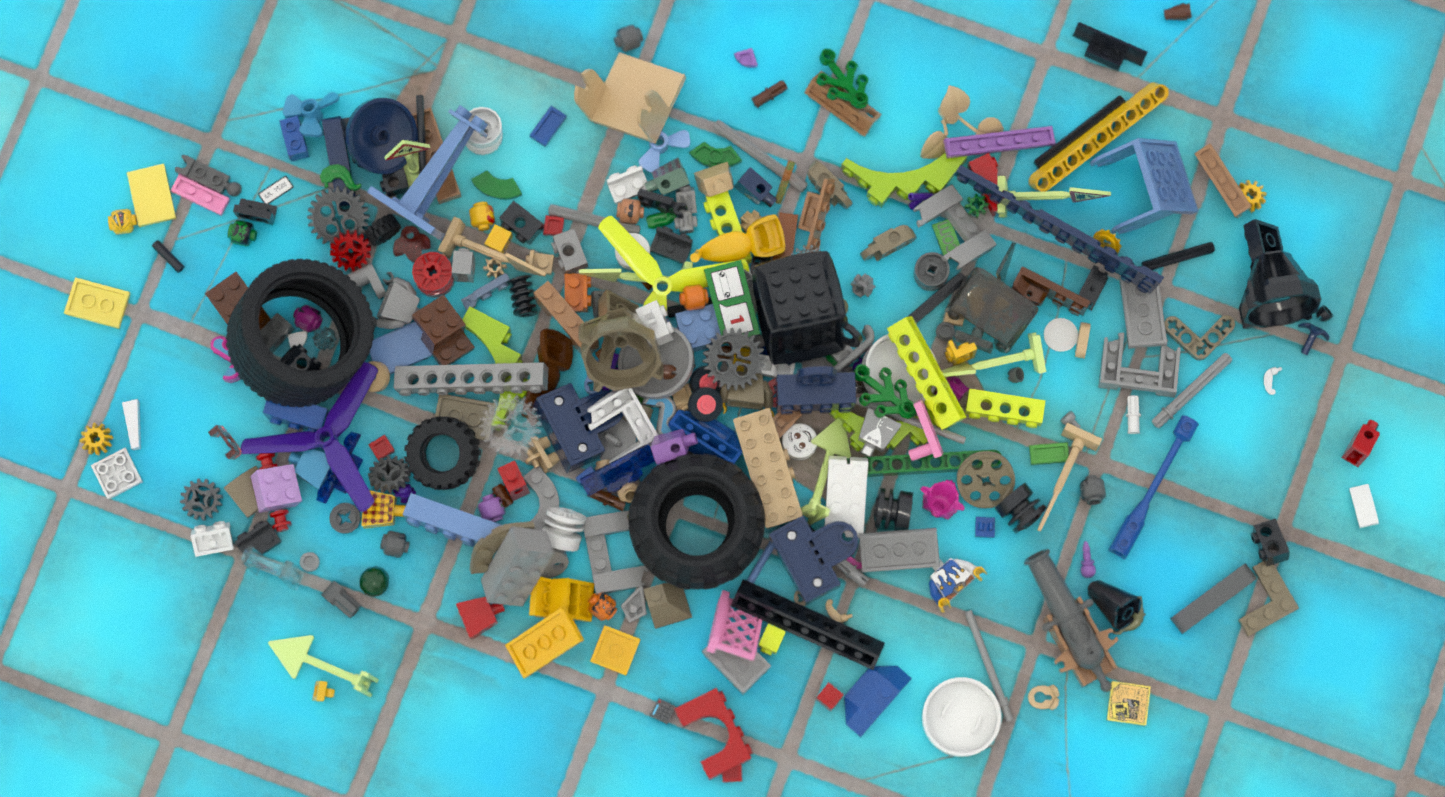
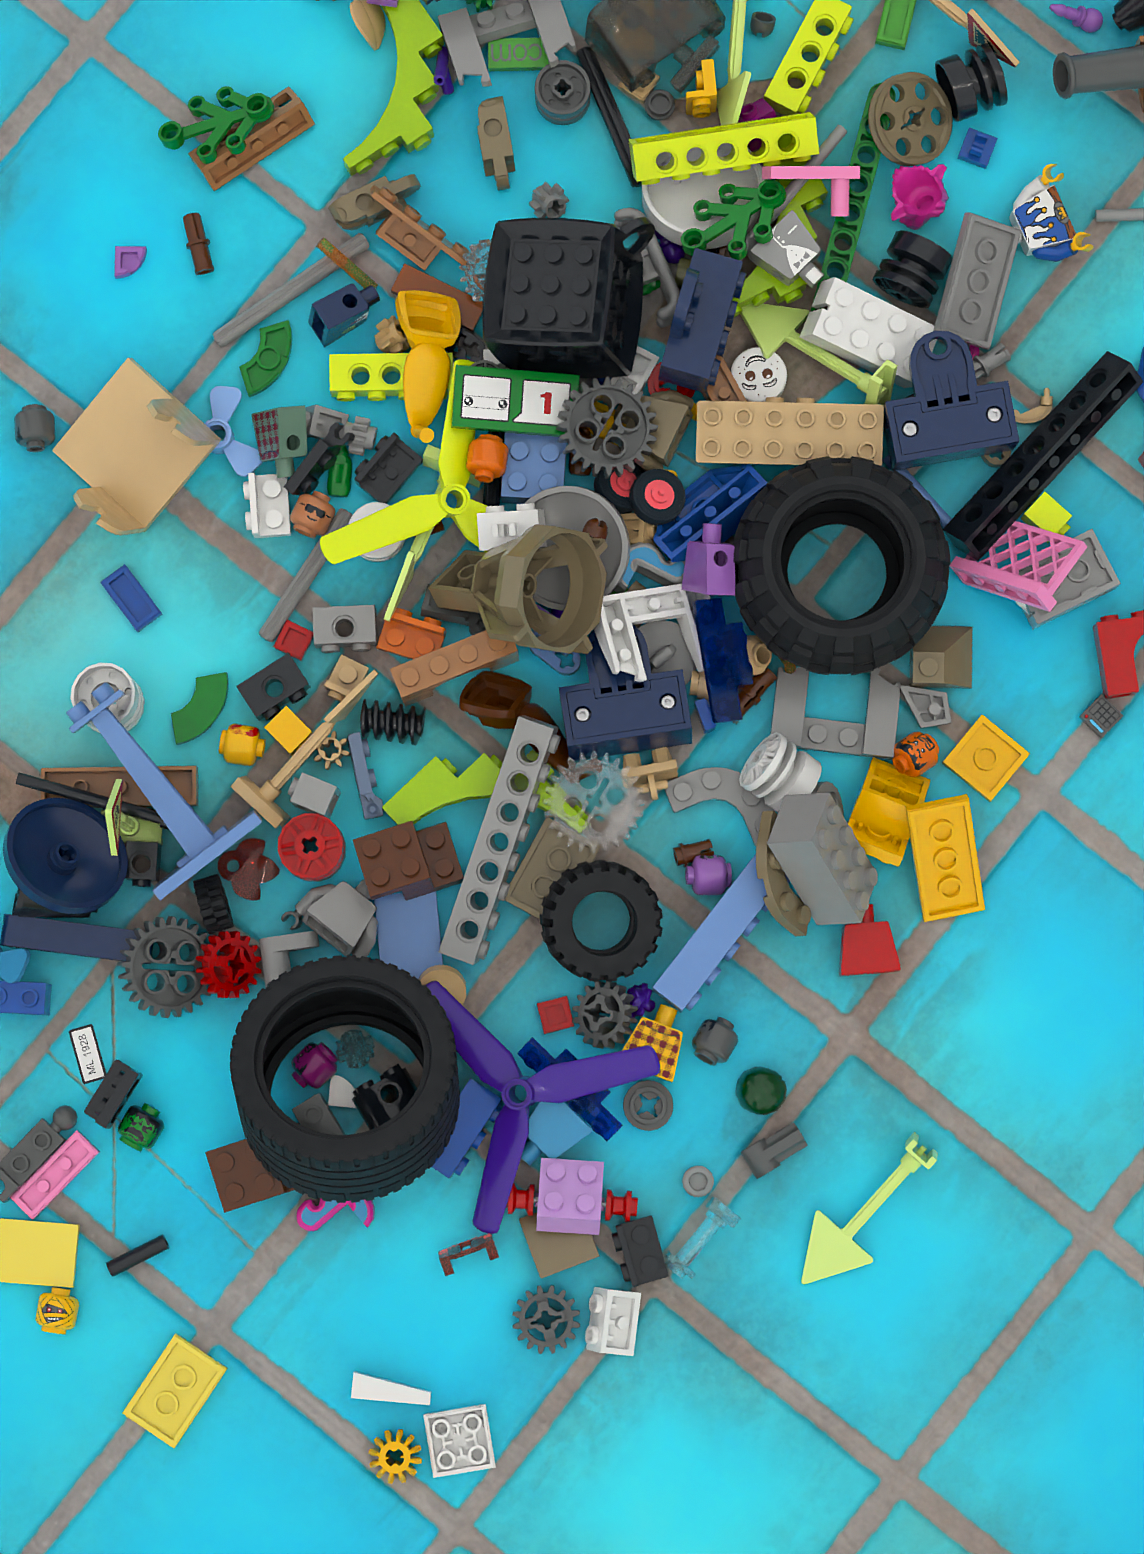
camera: 70 degrees left, 5 degrees up
(321, 691) = (907, 1224): yellow tile -> none
(338, 171) = (96, 943): green piece -> none
(513, 480) = (673, 827): red torso -> none
(714, 180) = (309, 369): tan torso -> none

